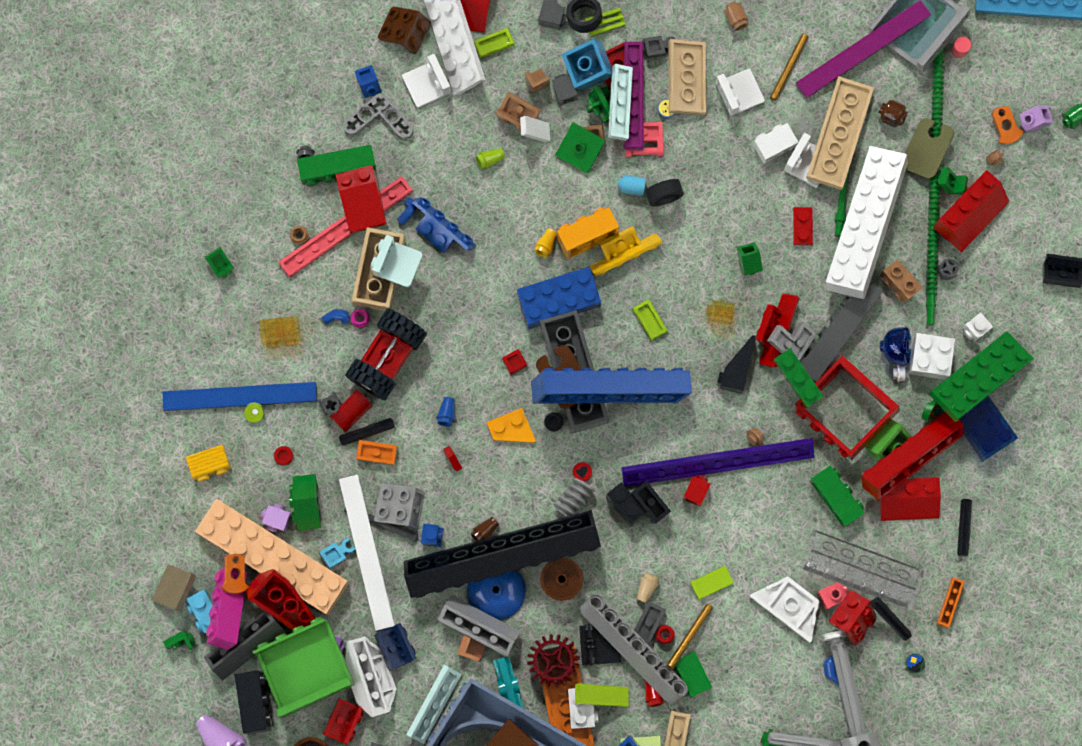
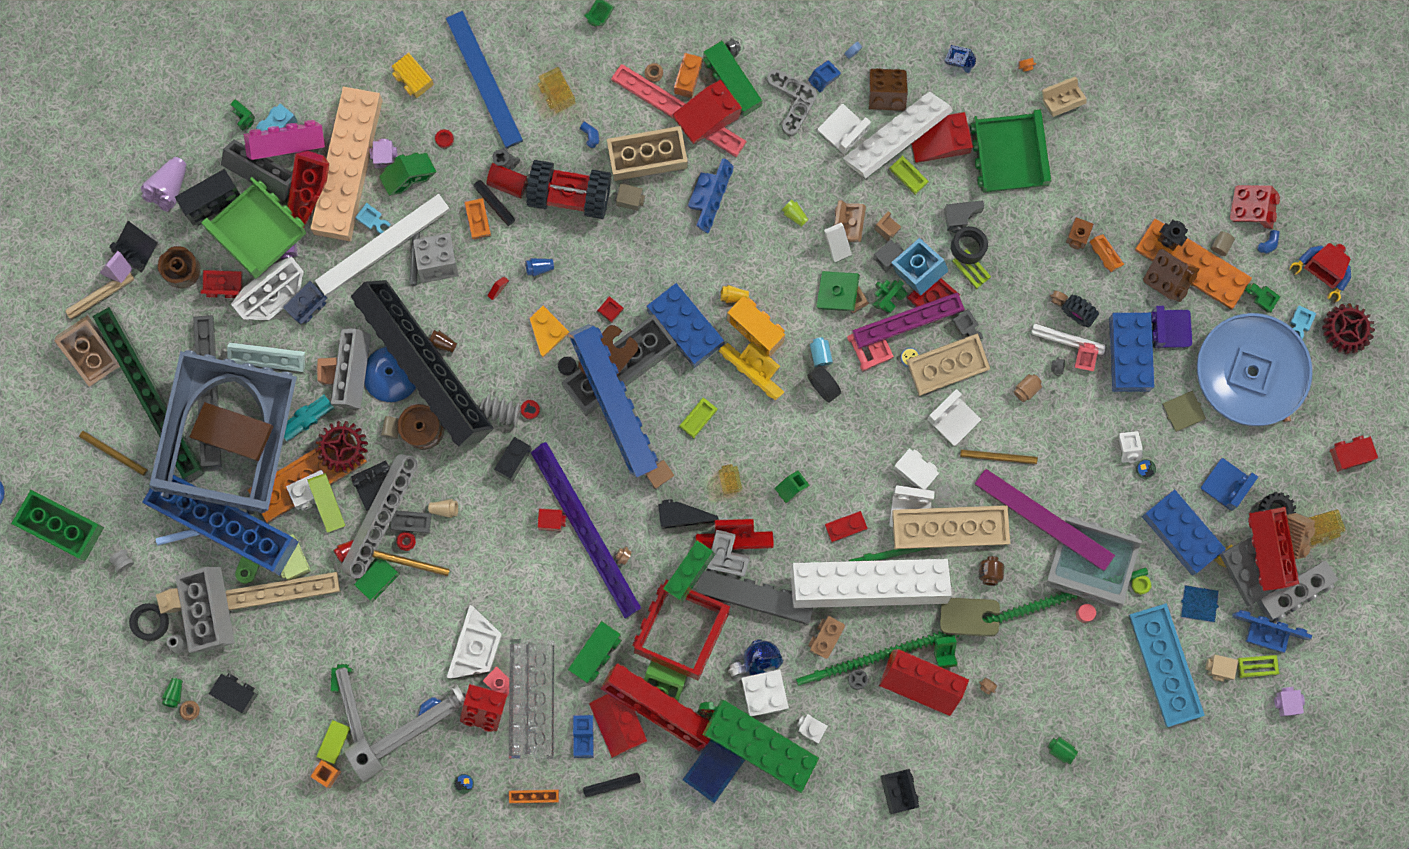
camera: 65 degrees right, 0 degrees up
(174, 587) = (287, 90): dark tan tile -> none
(234, 585) = (307, 141): orange piece -> none
(254, 412) = (473, 97): lime tile -> none
(317, 204) = (688, 75): none -> orange brick
(354, 45) = (854, 49): none -> medium blue tile
(356, 313) = (597, 150): dark pink plate -> none
(396, 262) = (656, 162): light aqua bracket -> none
(408, 213) = (713, 160): blue arm -> none
(414, 302) = (630, 197): none -> dark tan brick
(432, 535) = (419, 296): blue brick -> none
(550, 608) = (390, 427): none -> dark tan piece
(620, 102) = (894, 309): light aqua plate -> none
(650, 502) = (522, 480): black brick -> none
(696, 372) = (660, 475): none -> medium nougat panel
(711, 582) = (470, 566): lime tile -> none
(891, 618) = (495, 744): black axle -> none
(910, 536) = (583, 736): none -> blue slope
(1013, 133) = (1016, 693): orange piece -> none
(1036, 118) = (1042, 707): lavender brick -> none

